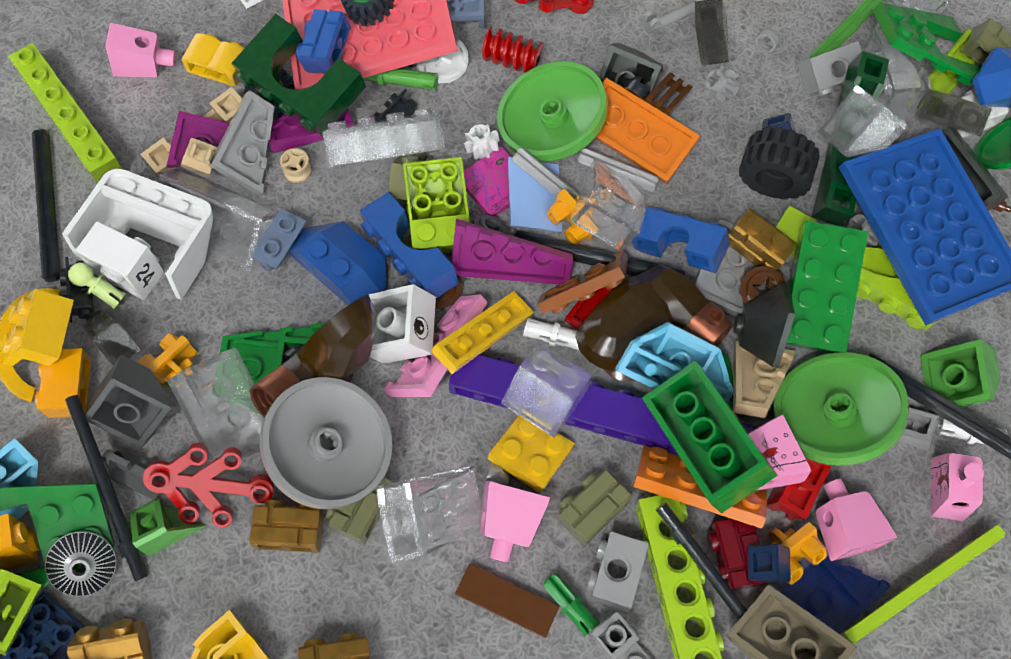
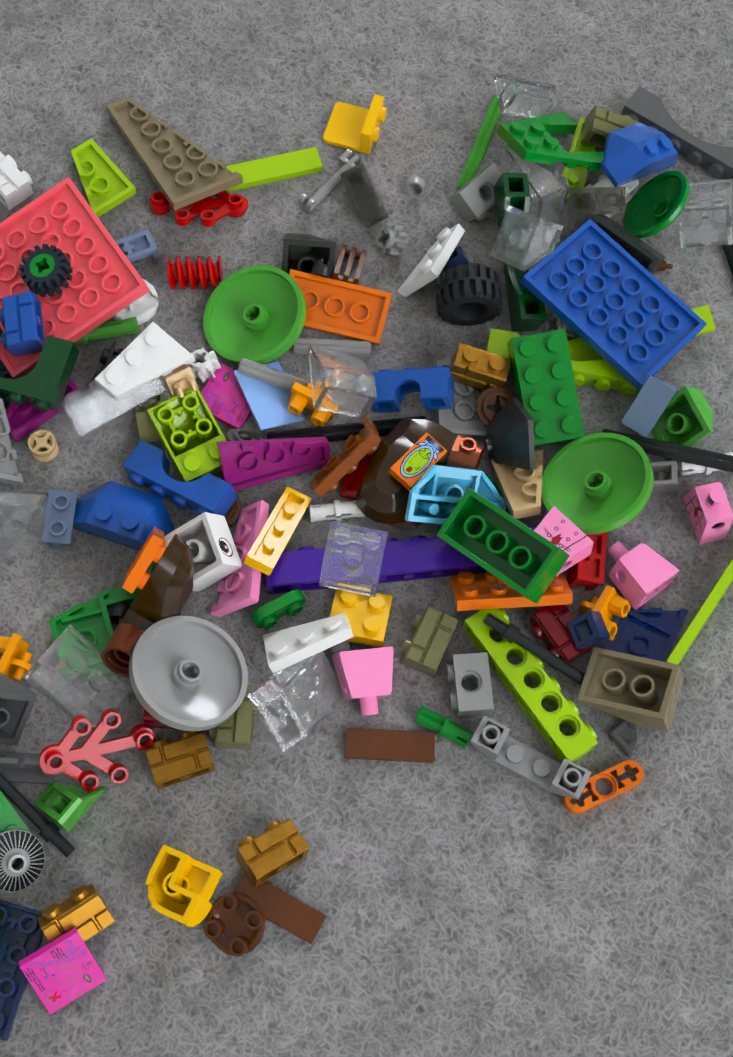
camera: 25 degrees left, 0 degrees up
(325, 308) = (140, 568): none -> orange plate
(418, 112) = (142, 361): none -> white wing
(439, 413) = (268, 614): none -> green plate
(447, 145) = (180, 381): none -> tan tile
(461, 455) = (305, 640): none -> white wing
(653, 312) = (417, 461): none -> tile
(756, 119) = (433, 261): none -> white wing
(931, 345) = (649, 405): none -> sand blue hinge

